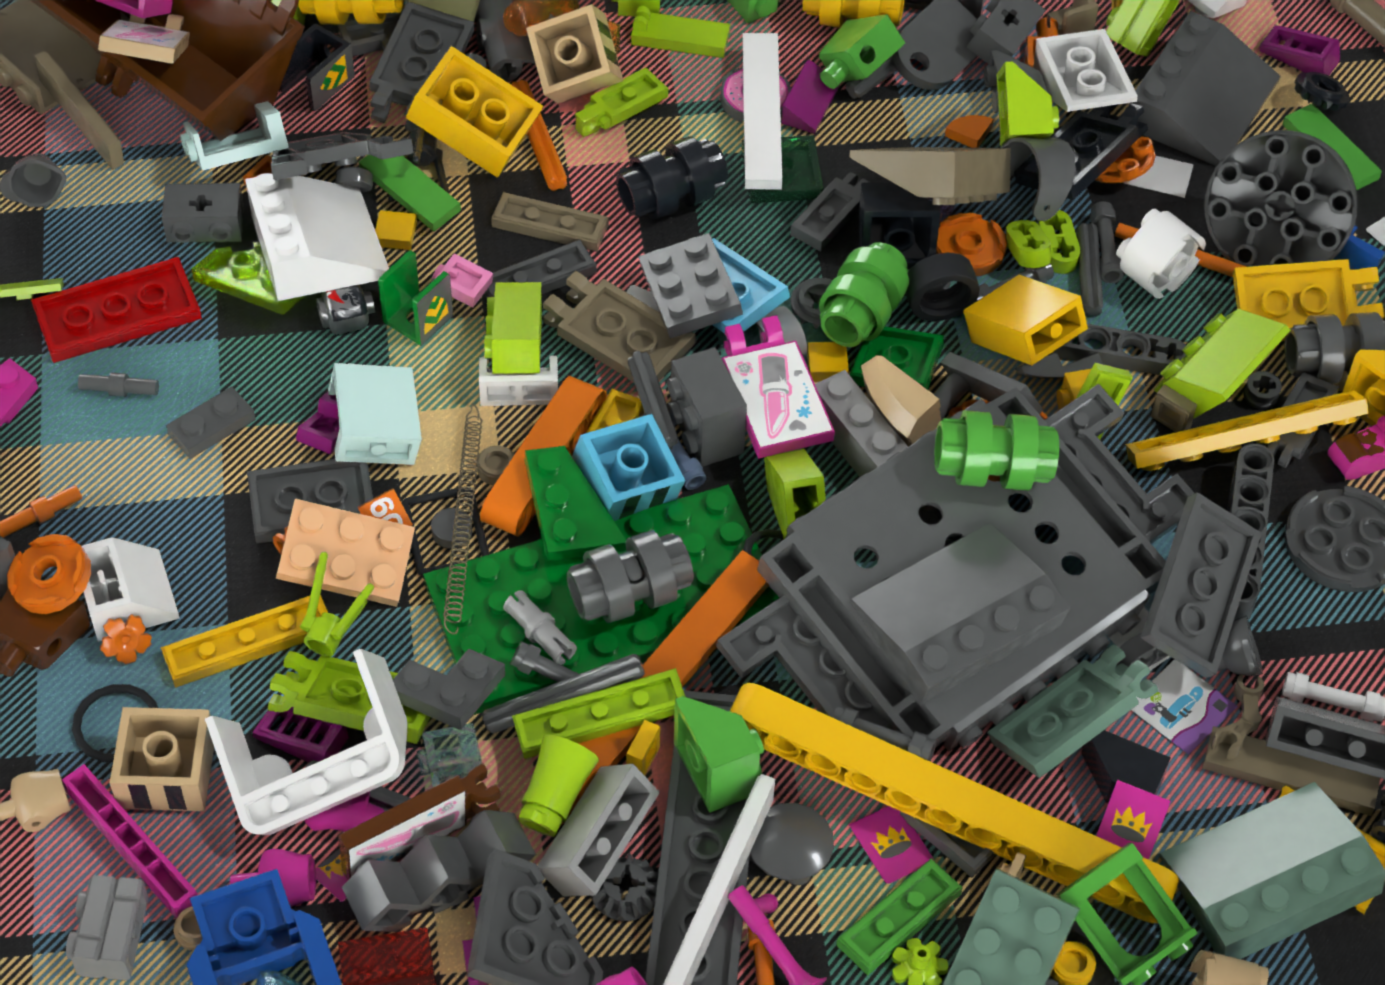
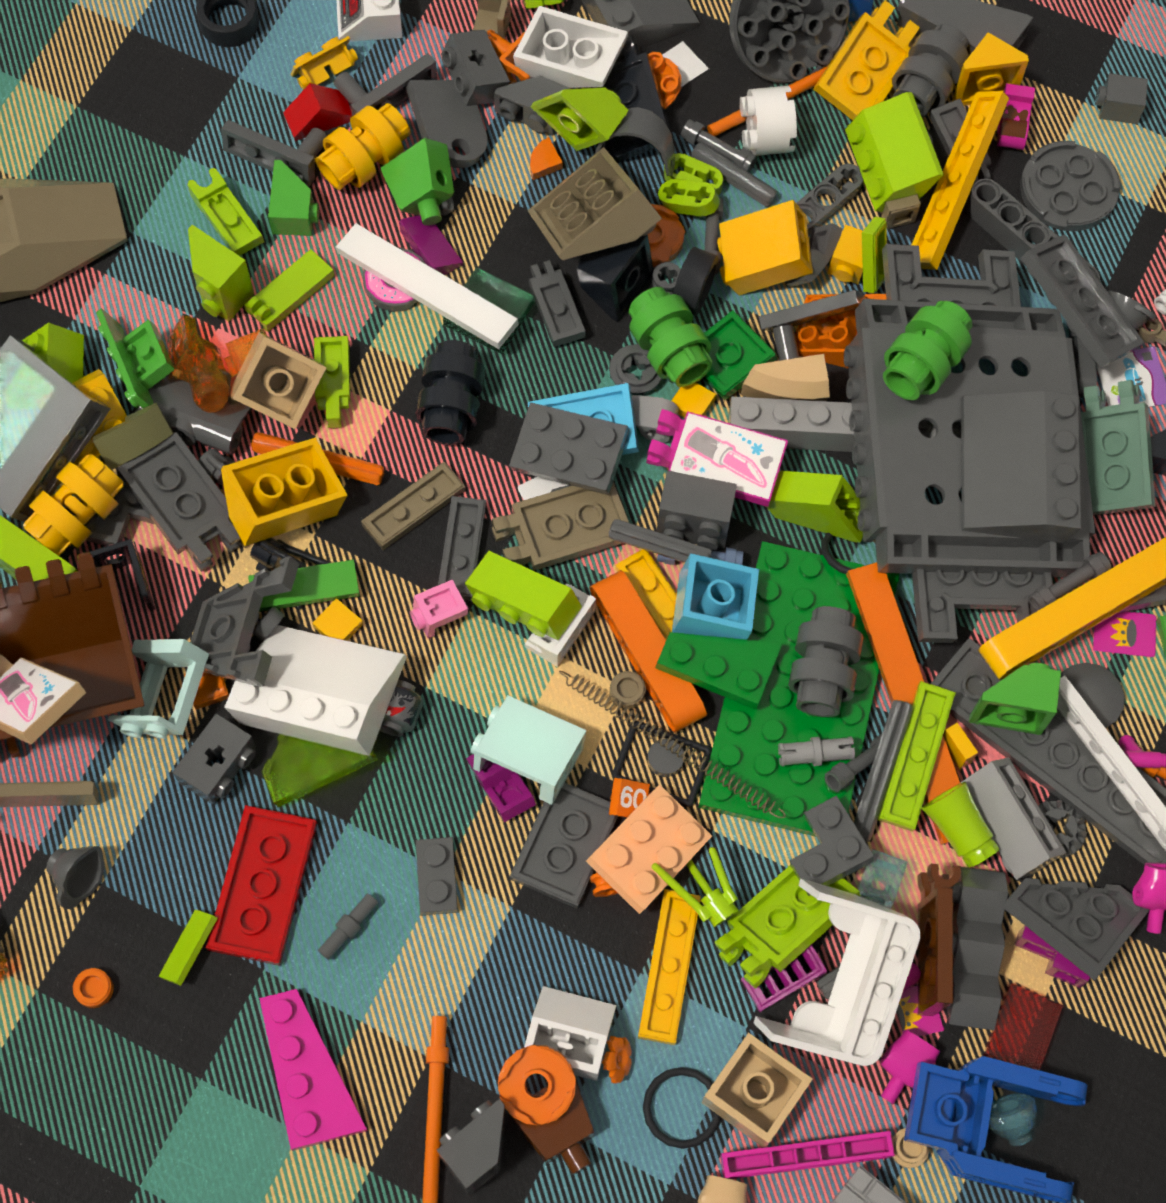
camera: 55 degrees left, 15 degrees up
(401, 296) = (447, 643): green piece -> none

